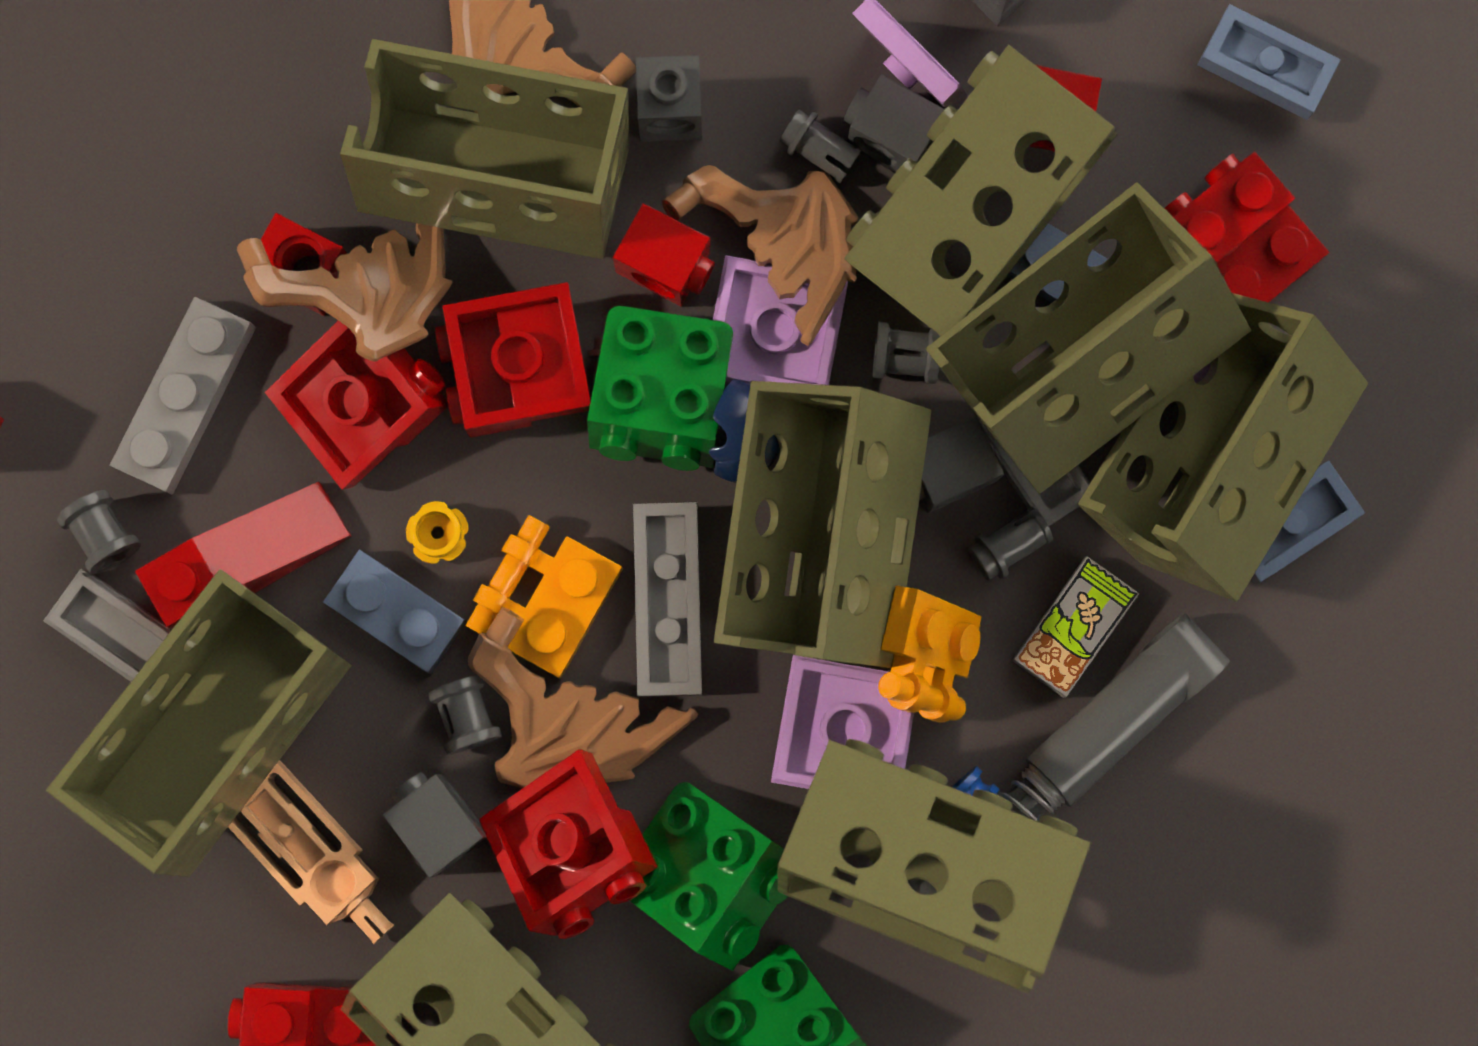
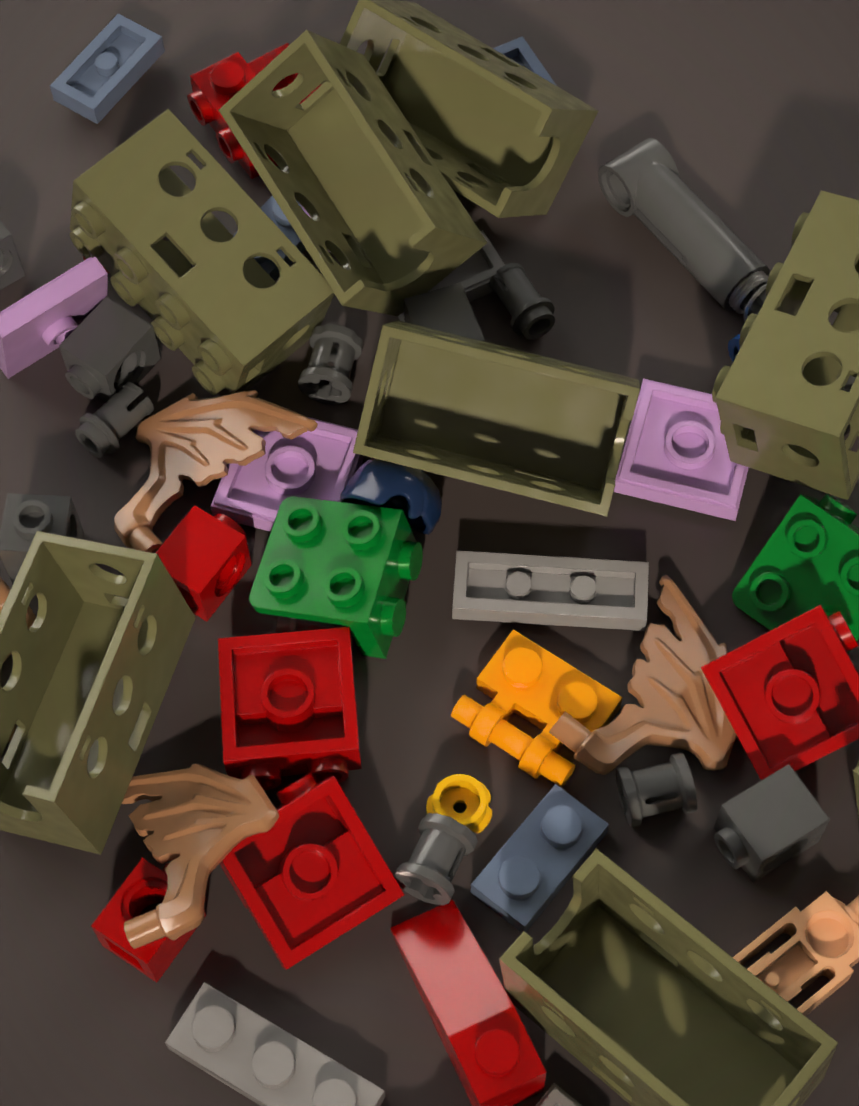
camera: 80 degrees left, 20 degrees down
(376, 514) = (436, 859): none -> dark grey bush
(930, 647) = (611, 352): light orange plate -> none
(1075, 627) = (603, 262): tile -> none

